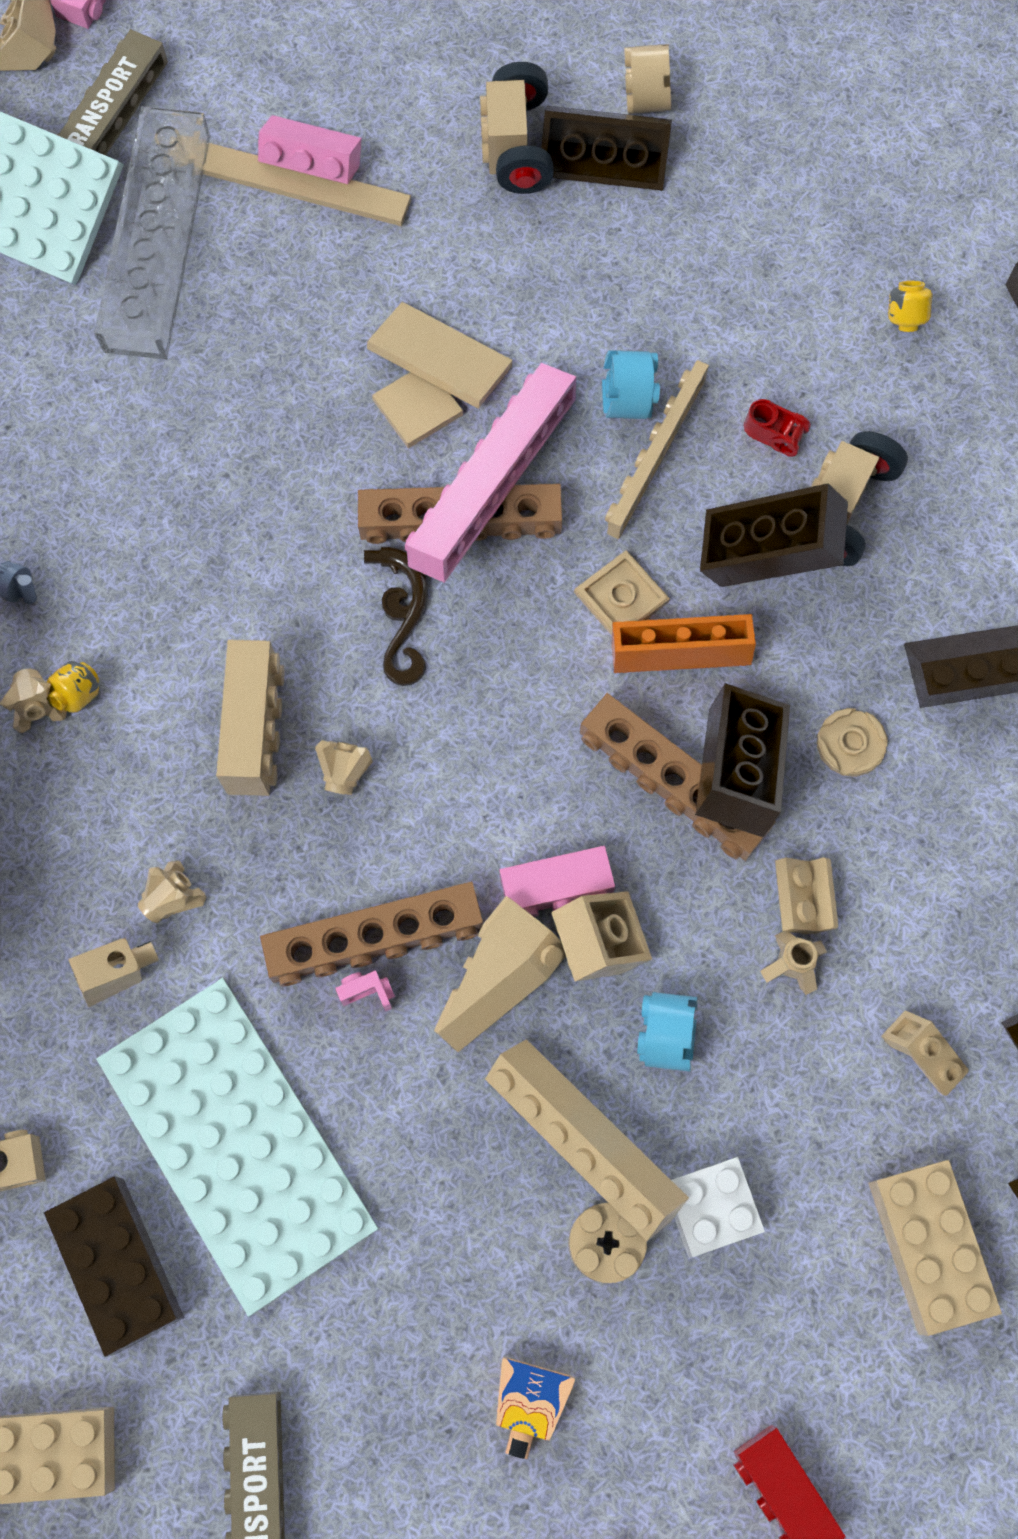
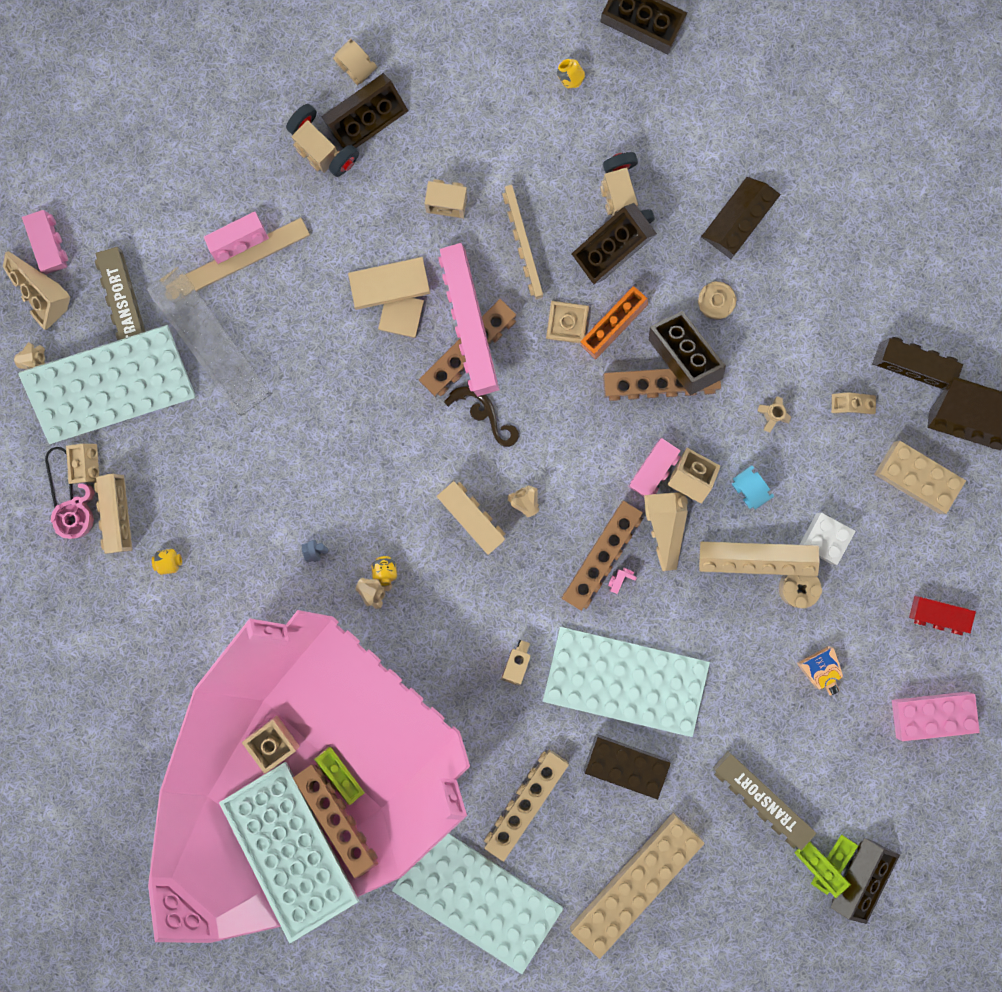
camera: 40 degrees left, 15 degrees up
(168, 893) = (507, 614): tan rock -> none
(607, 311) = (446, 199): none -> tan brick
(630, 384) = (486, 224): medium azure brick -> none
(777, 428) = (567, 184): red piece -> none
(806, 895) = (756, 383): tan bracket -> none

